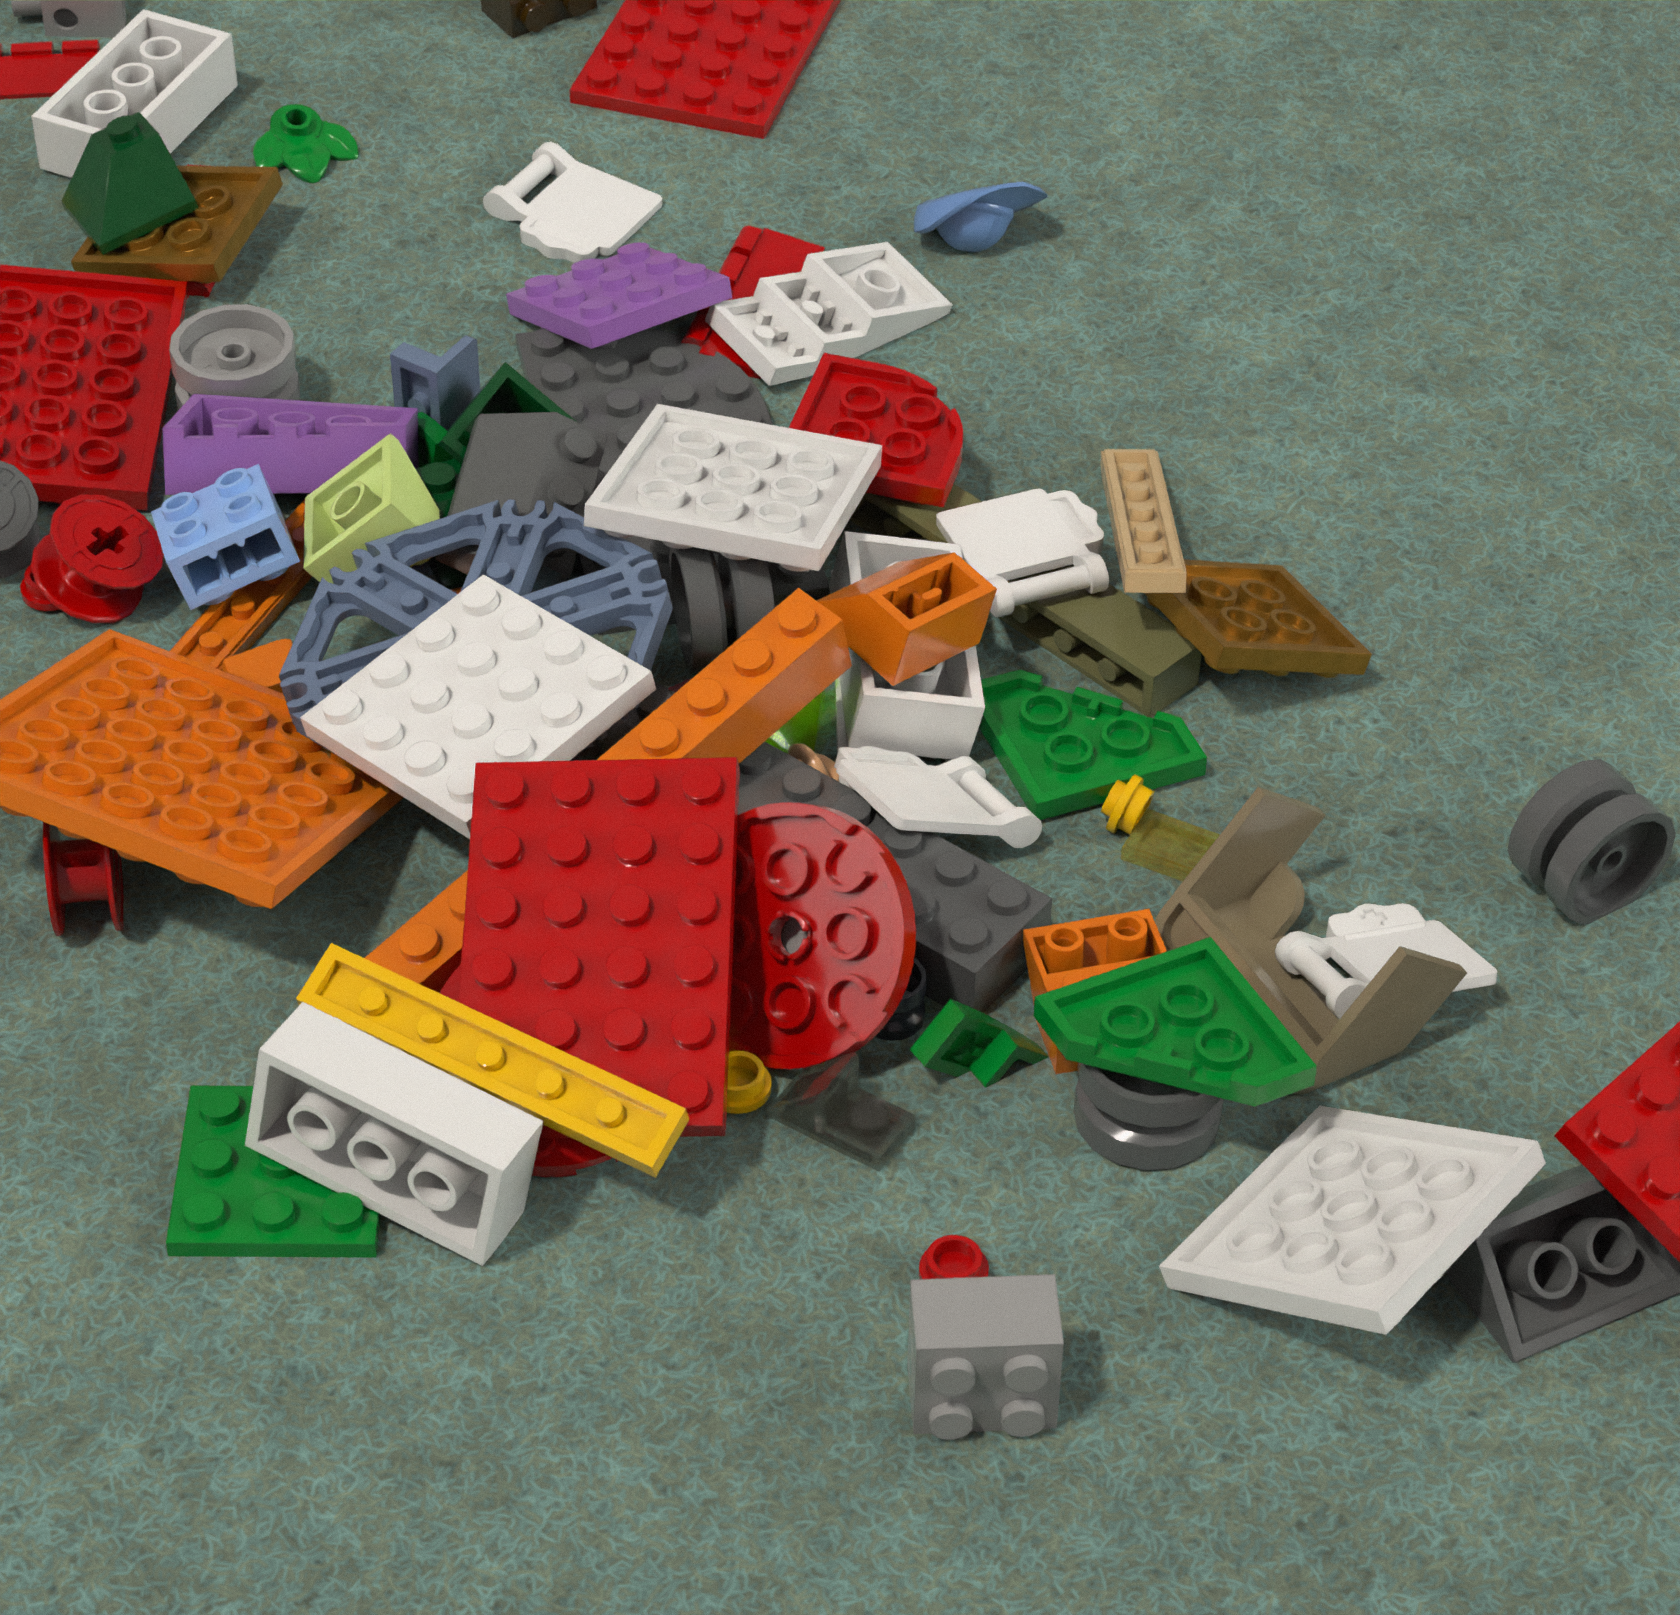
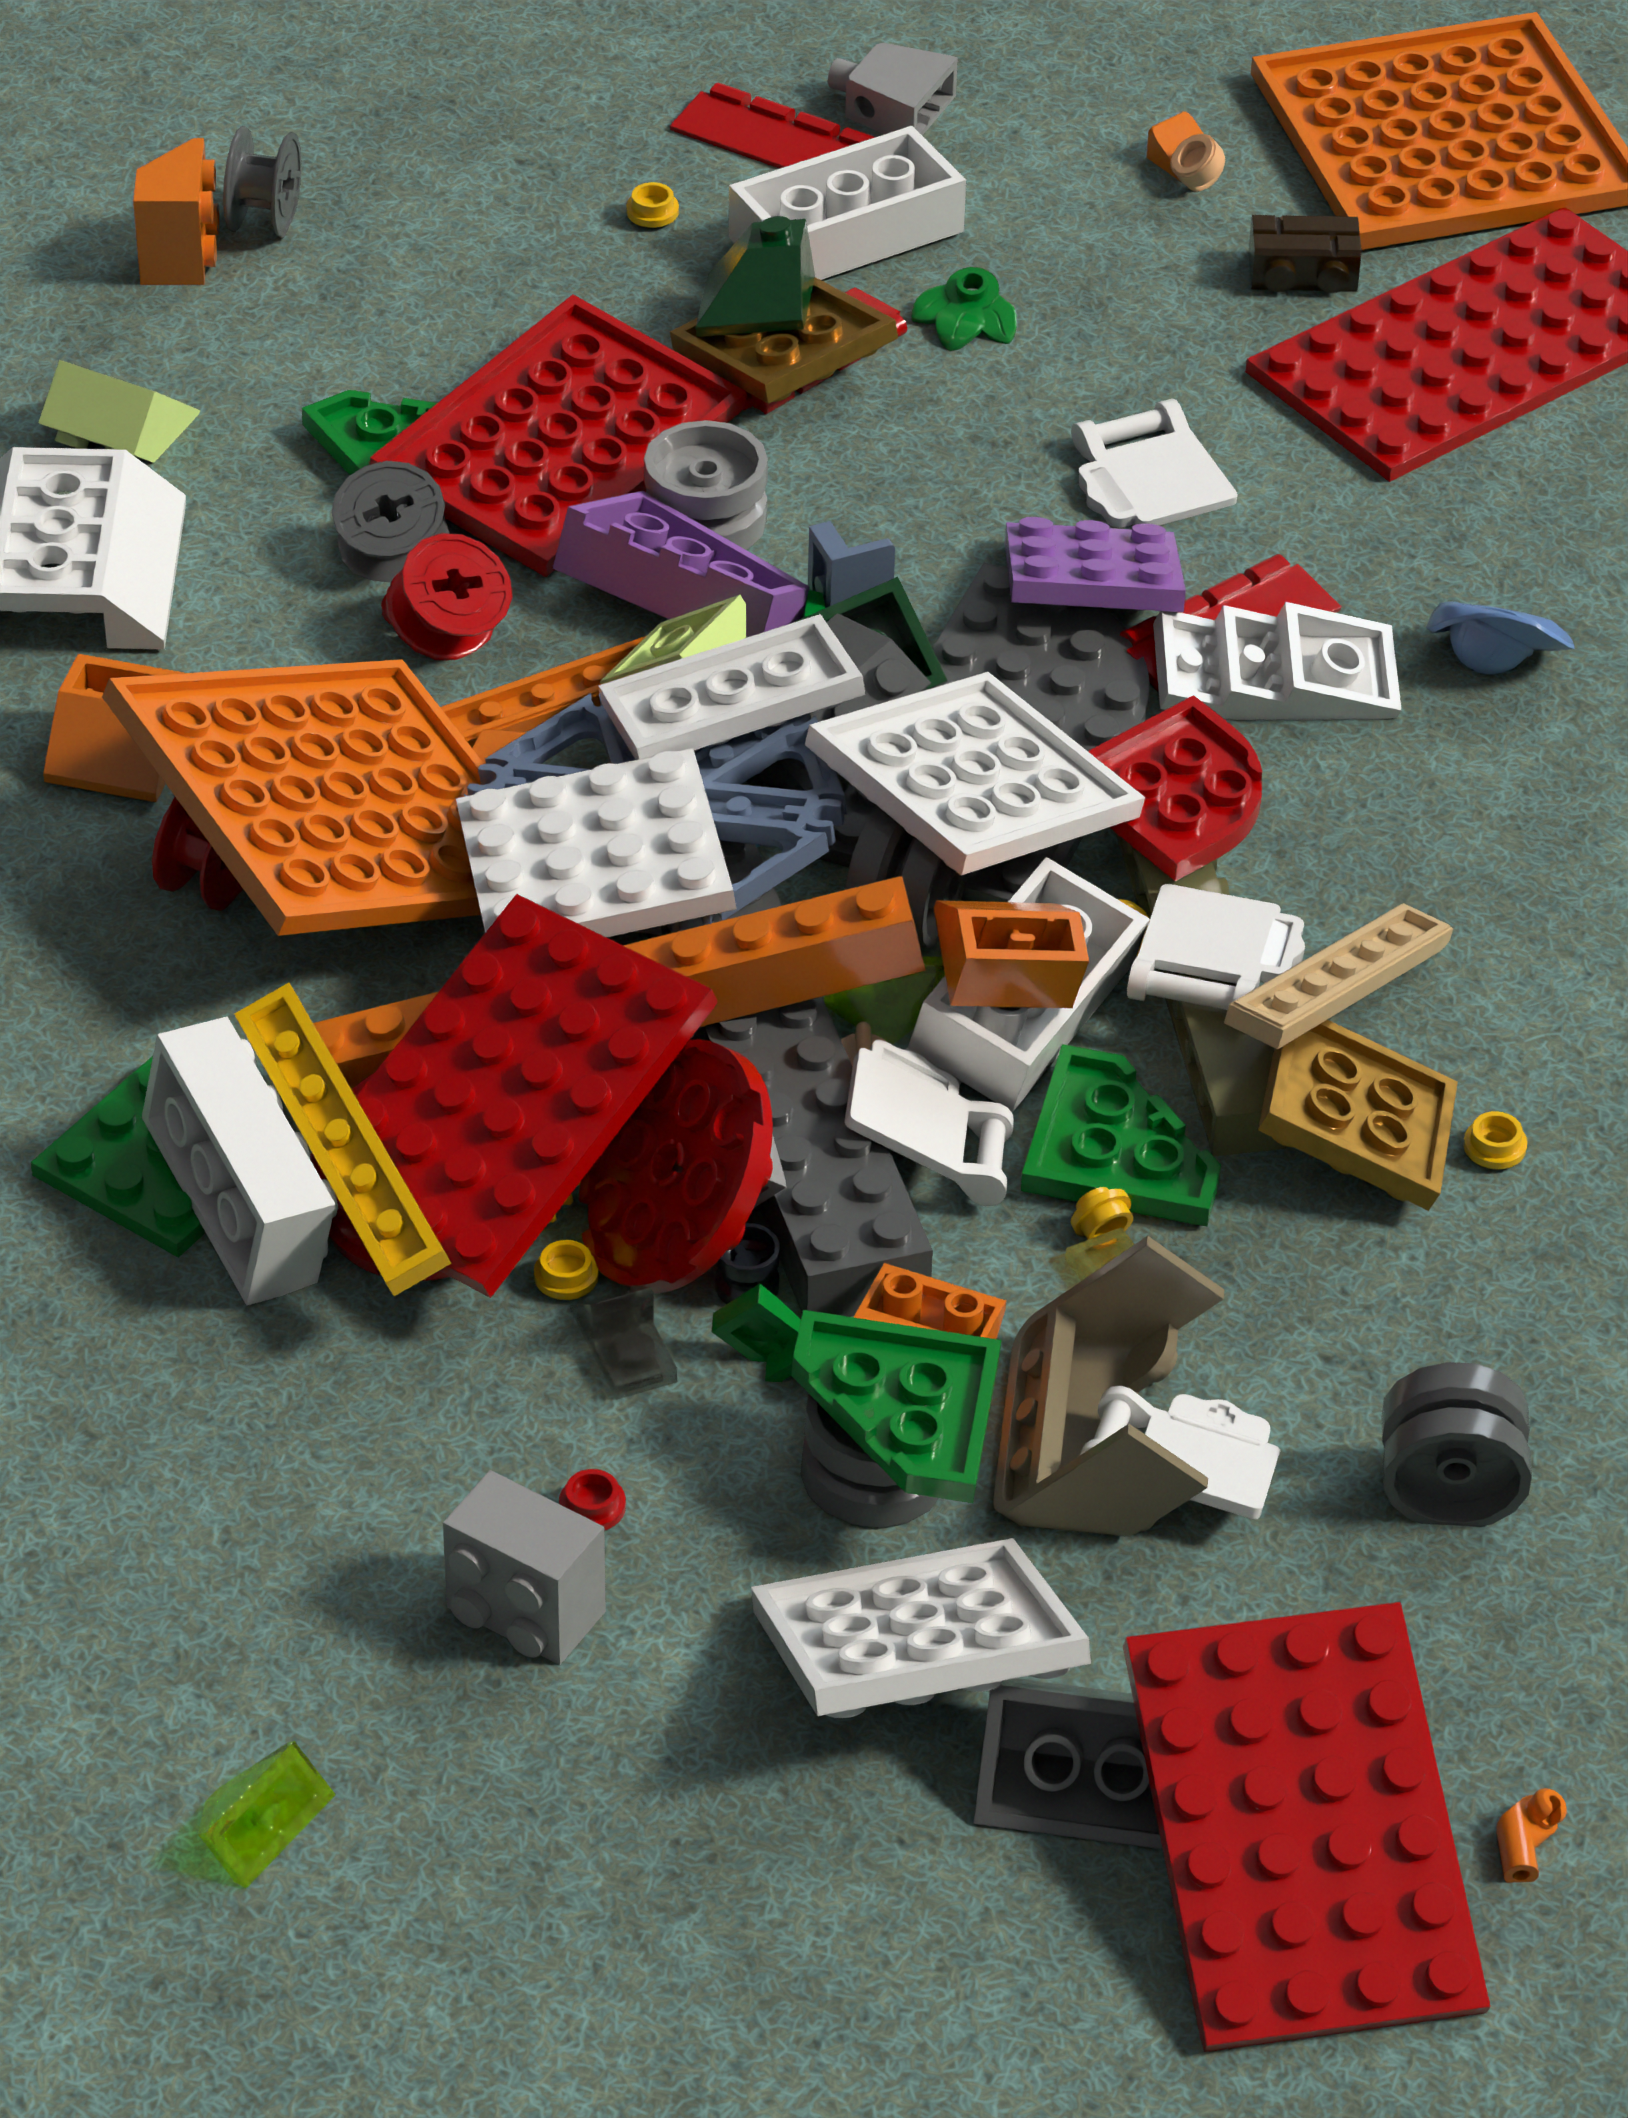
camera: 35 degrees right, 0 degrees up
(224, 536) = (560, 625): light blue brick -> none
(467, 512) = (732, 689): none -> white plate
(1352, 597) = (1495, 1140): none -> yellow plate

